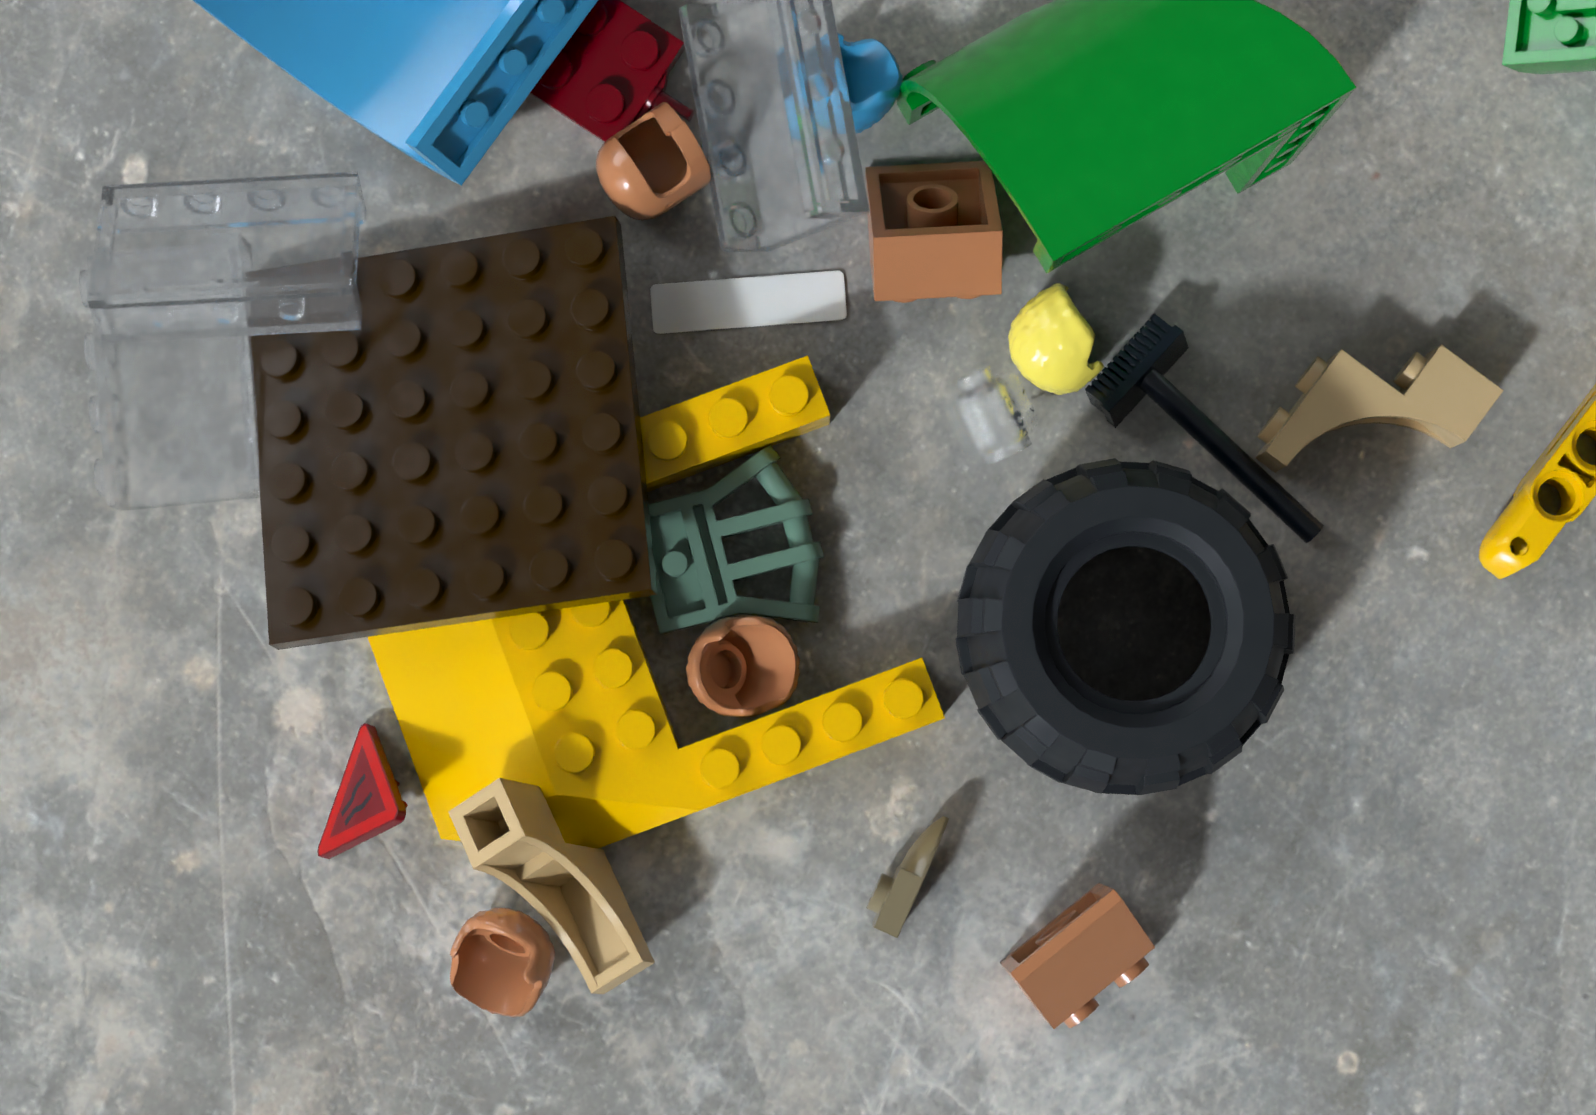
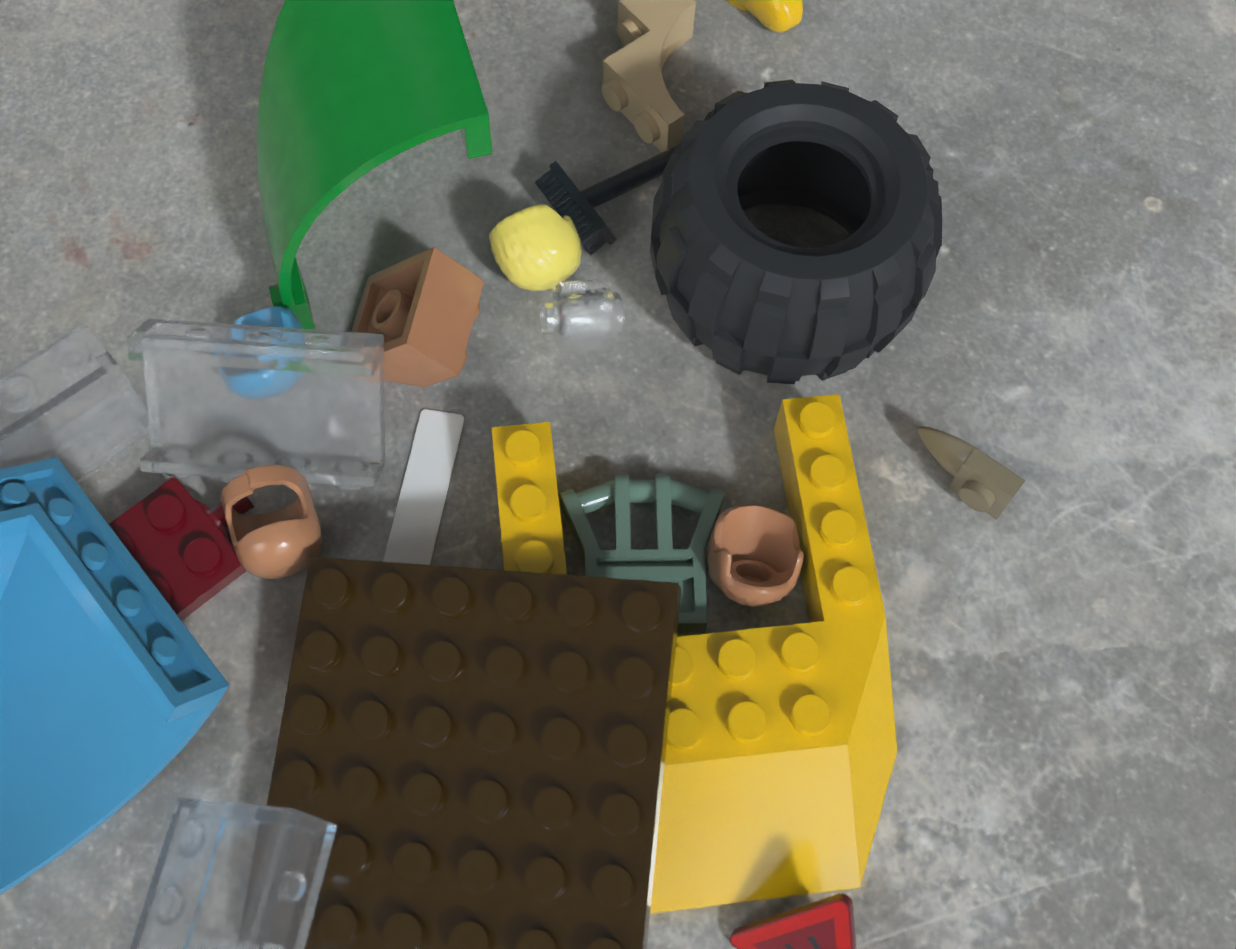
camera: 75 degrees left, 20 degrees down
(502, 961) = (998, 846): nougat hair -> none
(572, 886) = (932, 761): tan arch -> none
(1080, 957) = (1050, 353): nougat slope -> none

